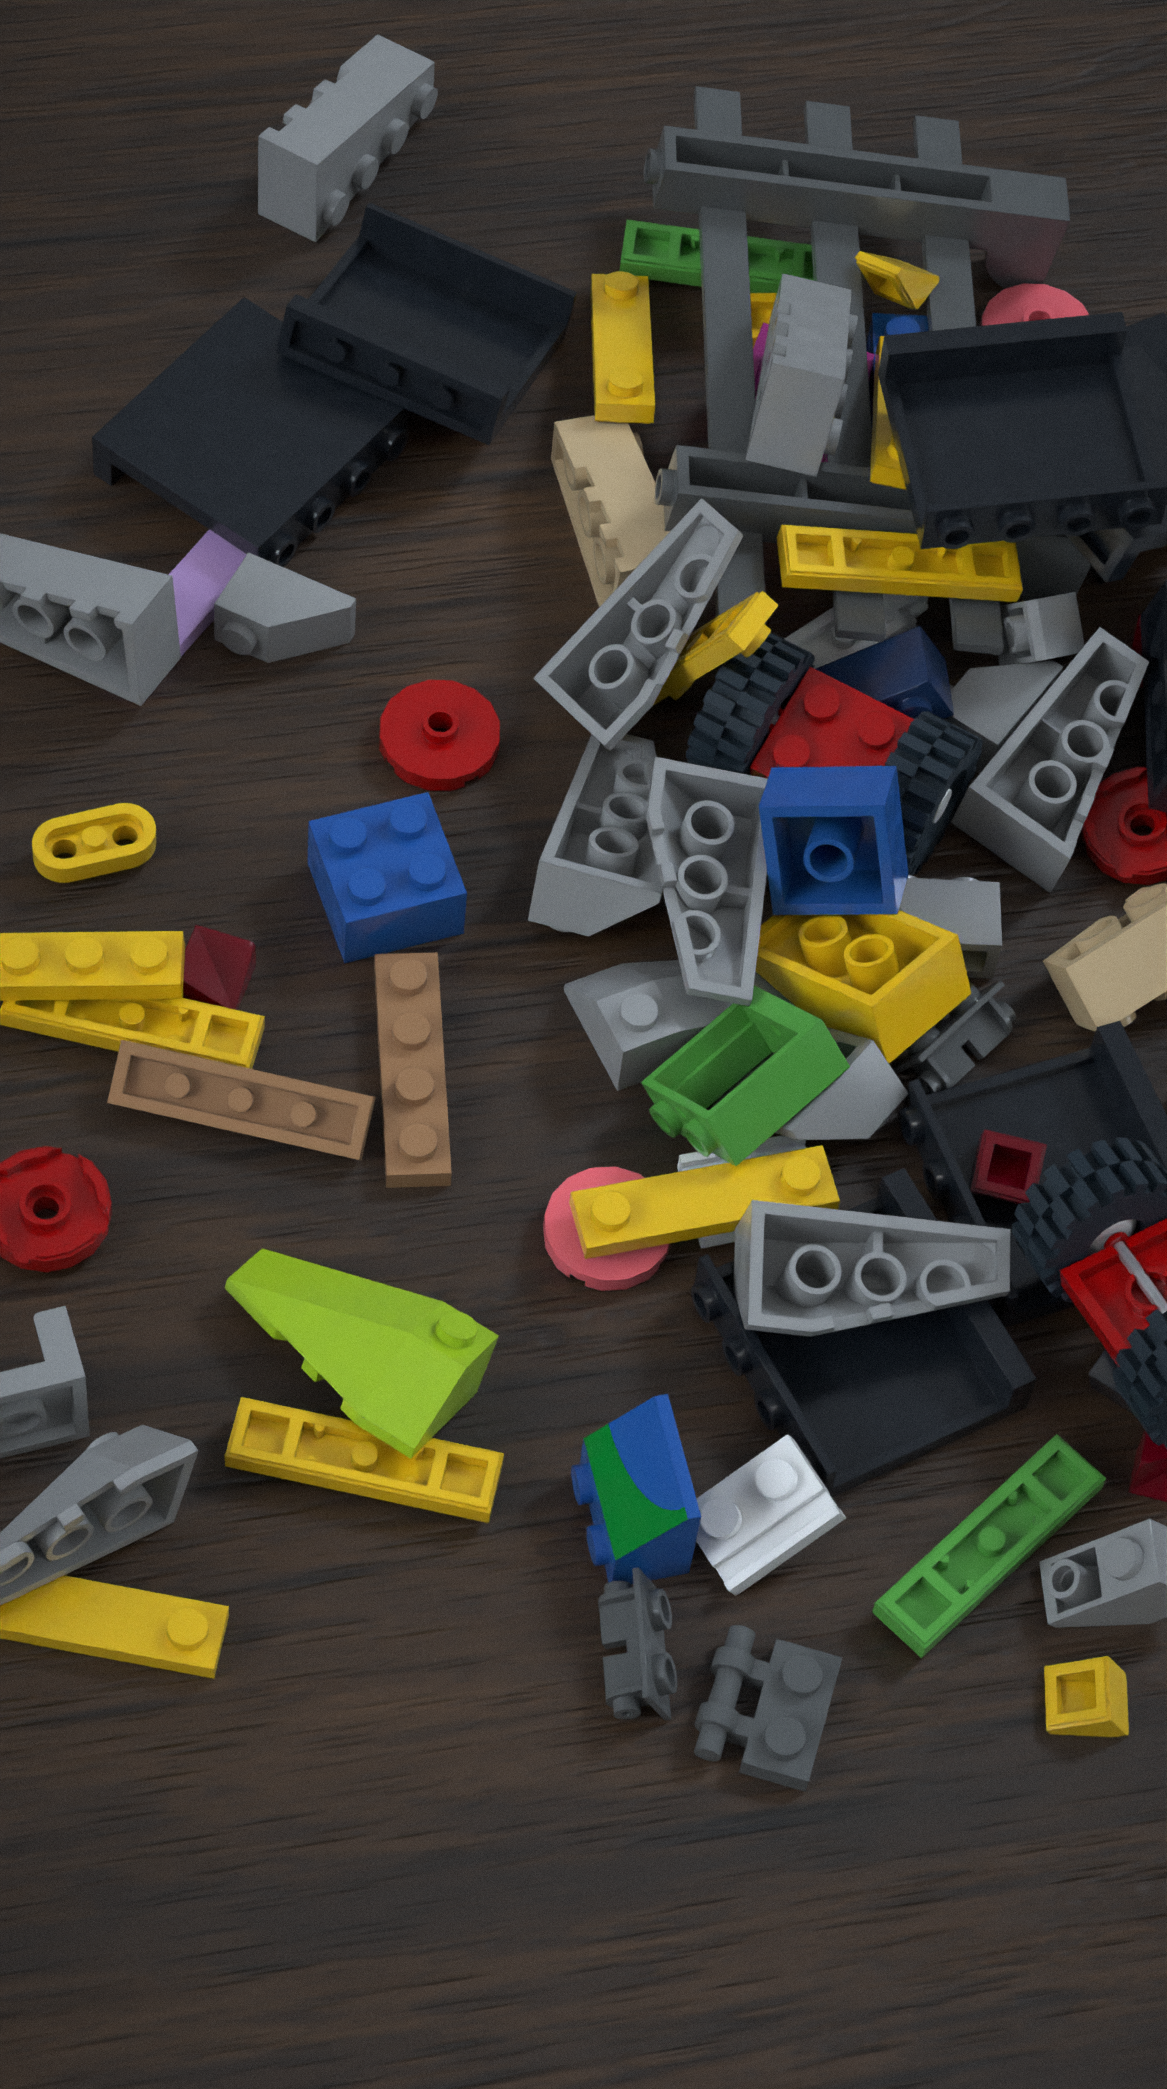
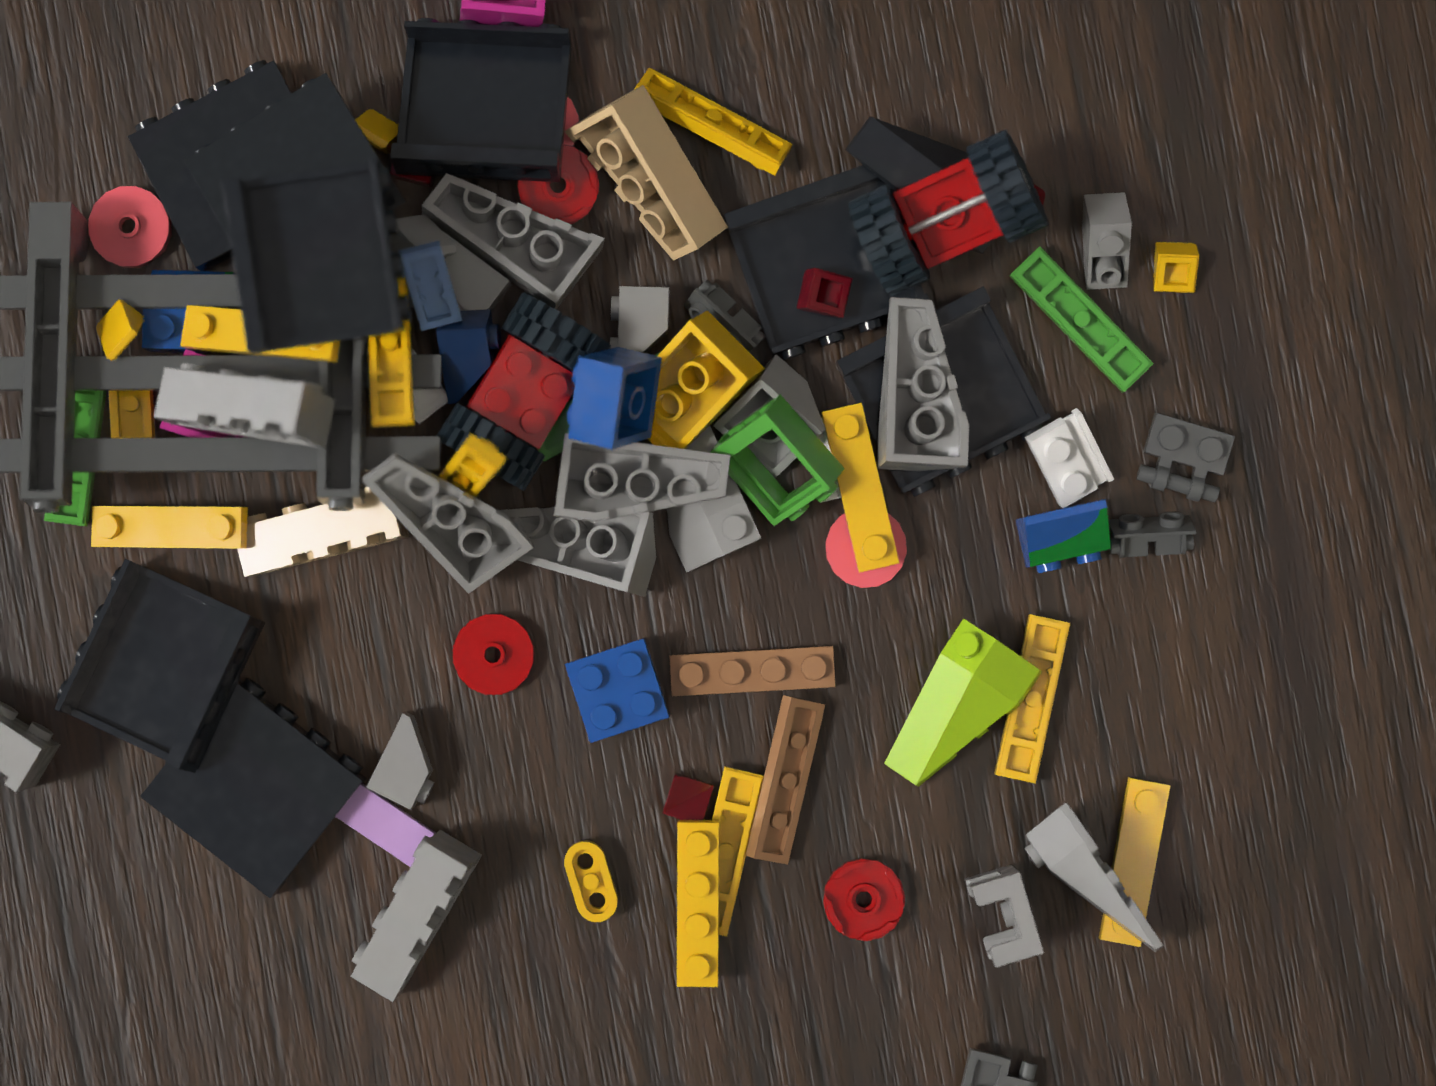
camera: 85 degrees left, 30 degrees up
(986, 614) = (430, 285): none -> medium blue plate

